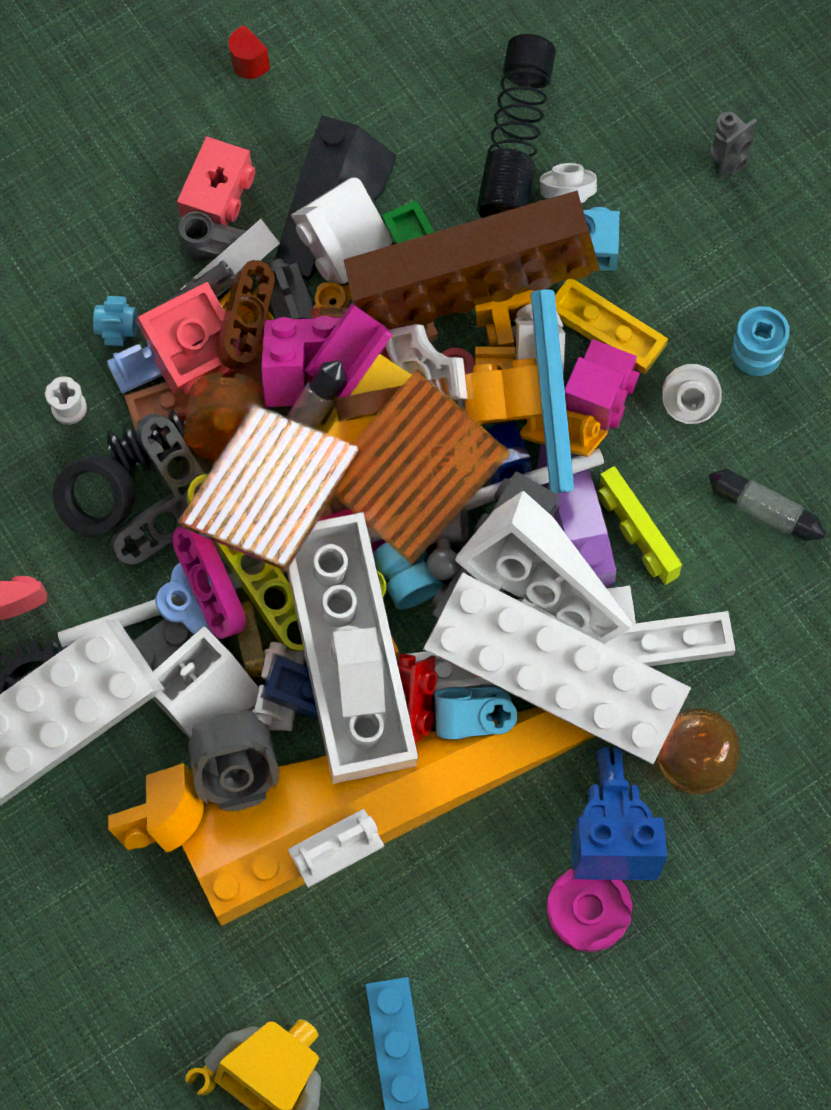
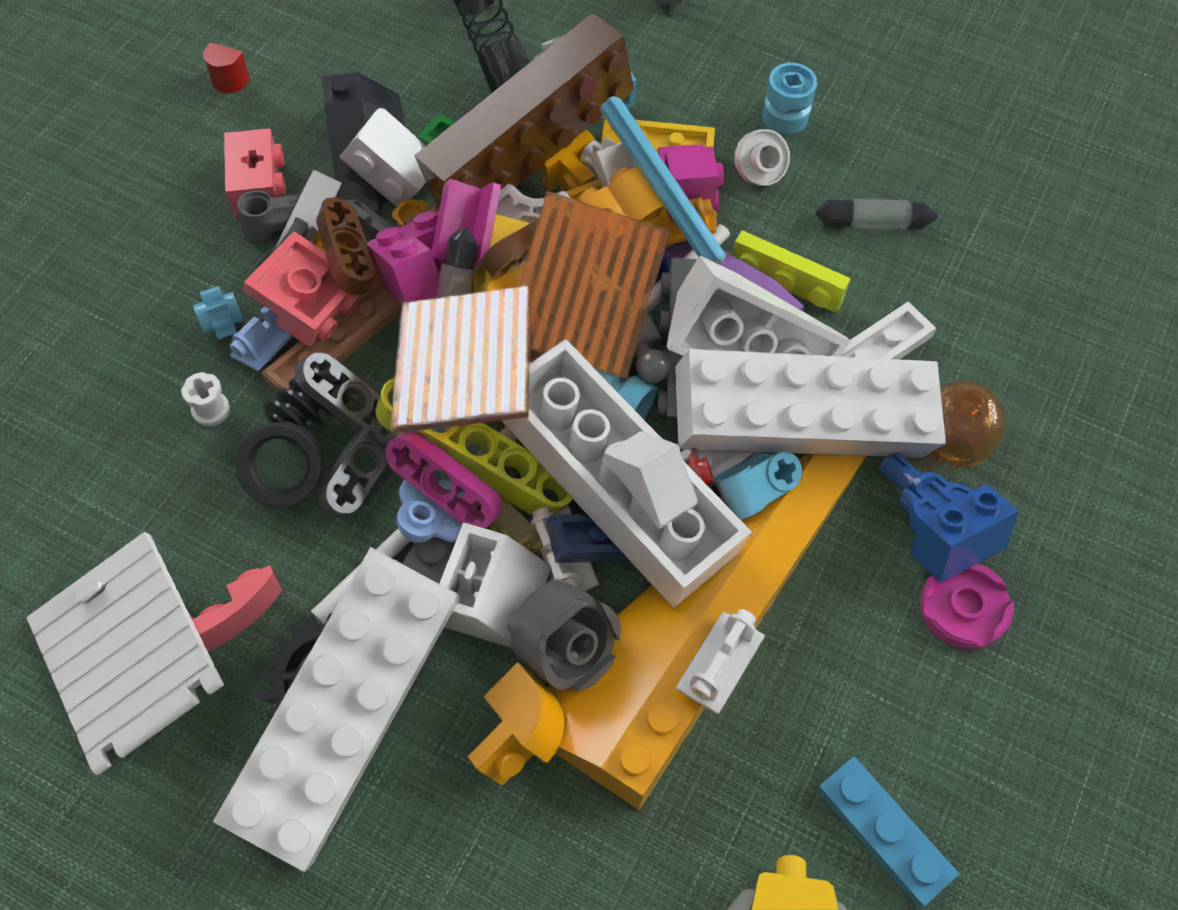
camera: 35 degrees left, 10 degrees down
(217, 410) = (366, 336): clear orange brick -> none

